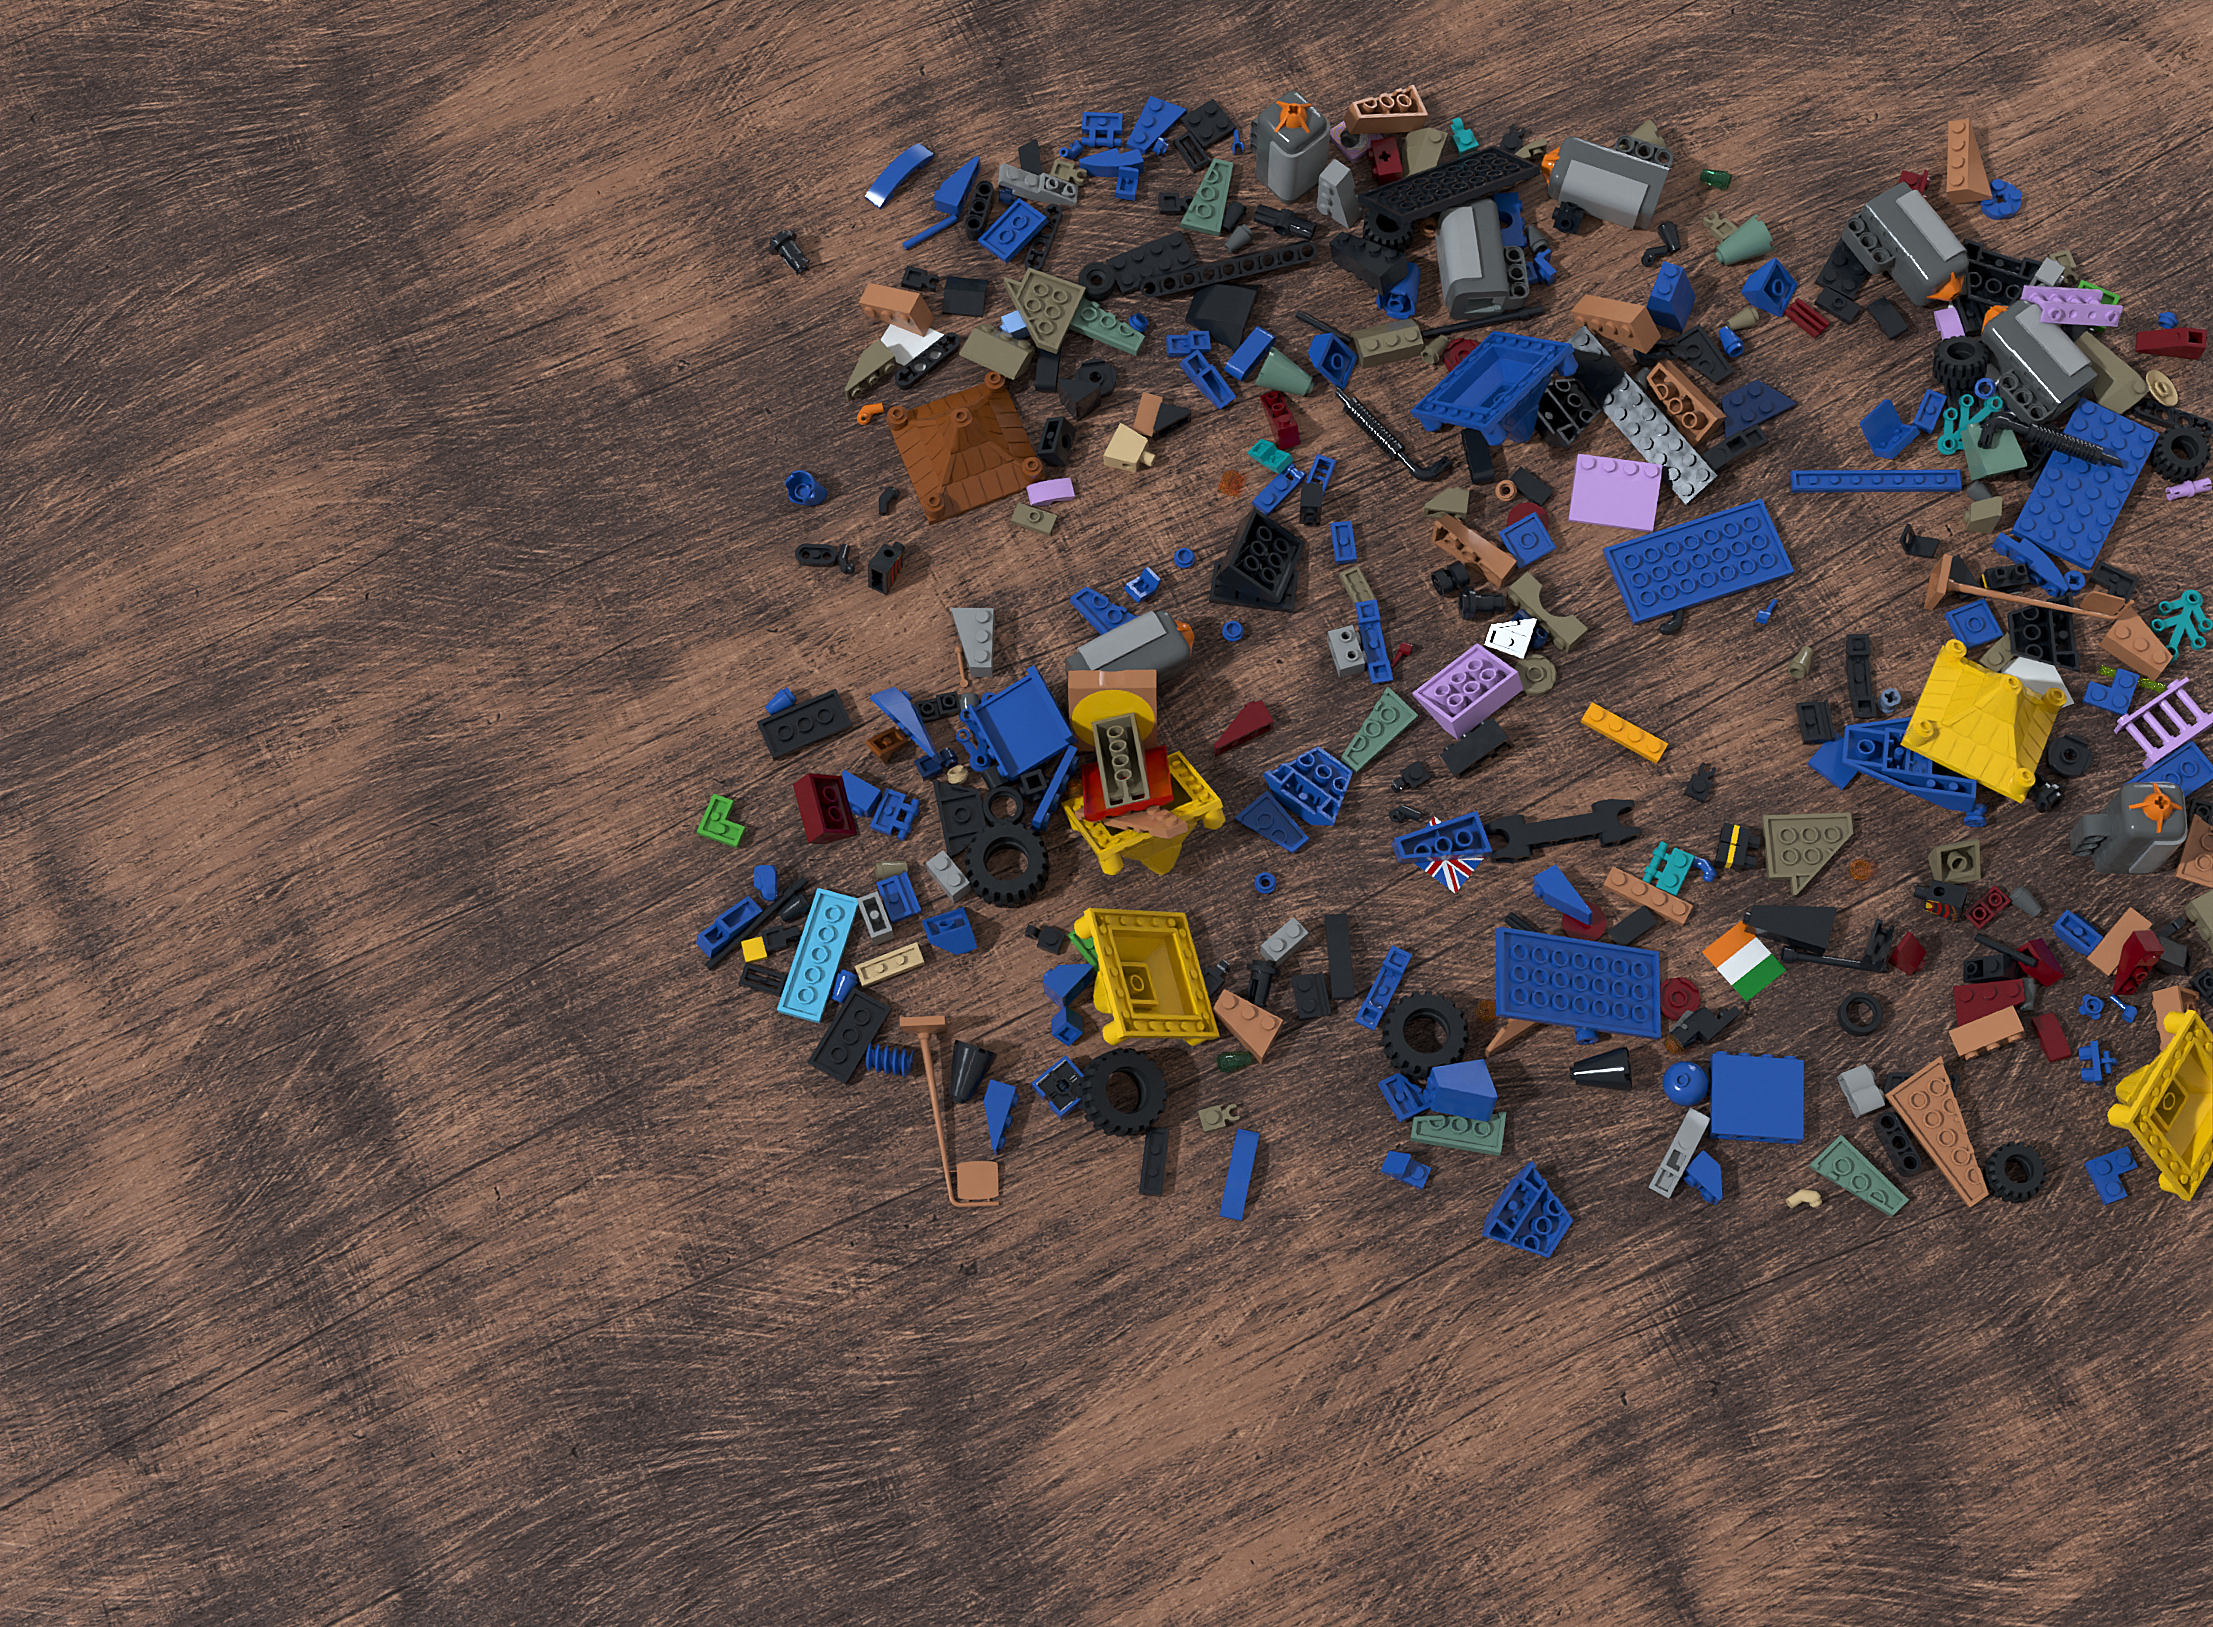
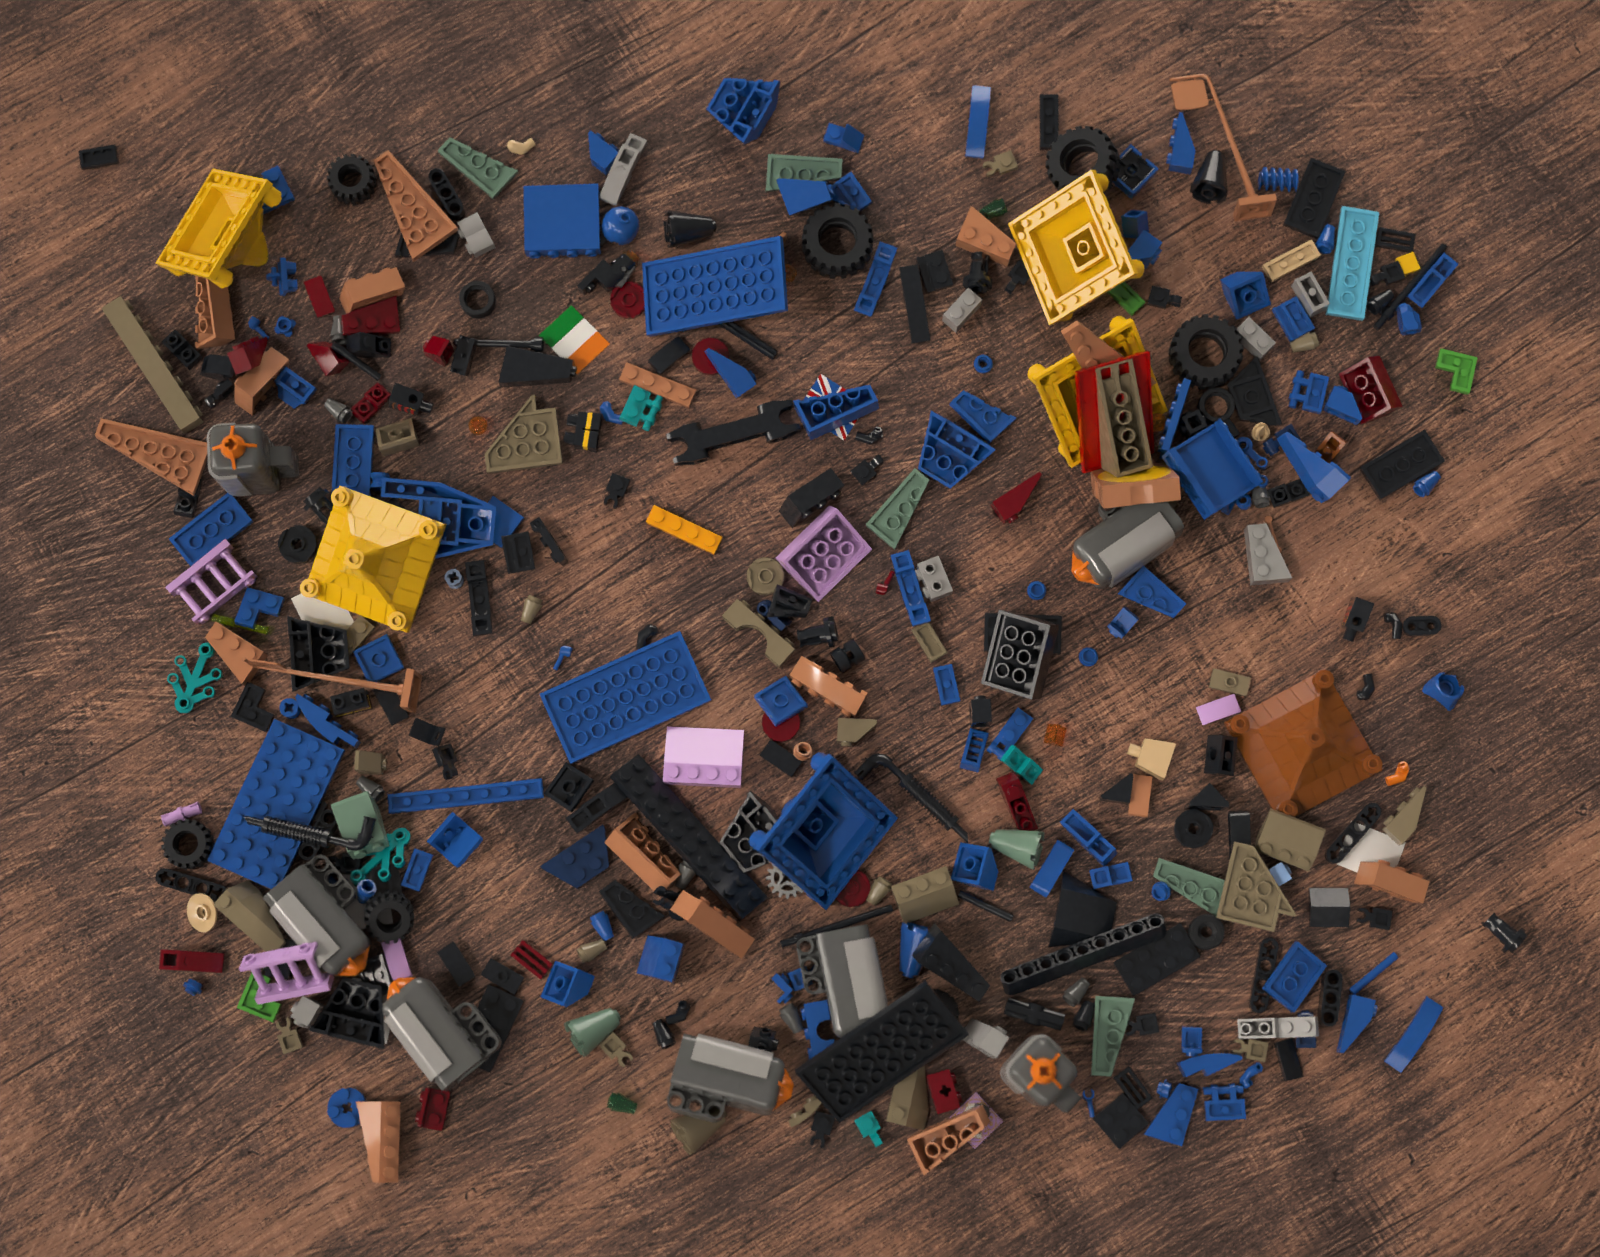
camera: 170 degrees right, 10 degrees up
(1762, 476) = (569, 787): none -> black slope
(1778, 731) = (548, 540): none -> black hinge
(1898, 515) = (446, 758): none -> black plate
(2007, 841) = (353, 457): none -> blue plate

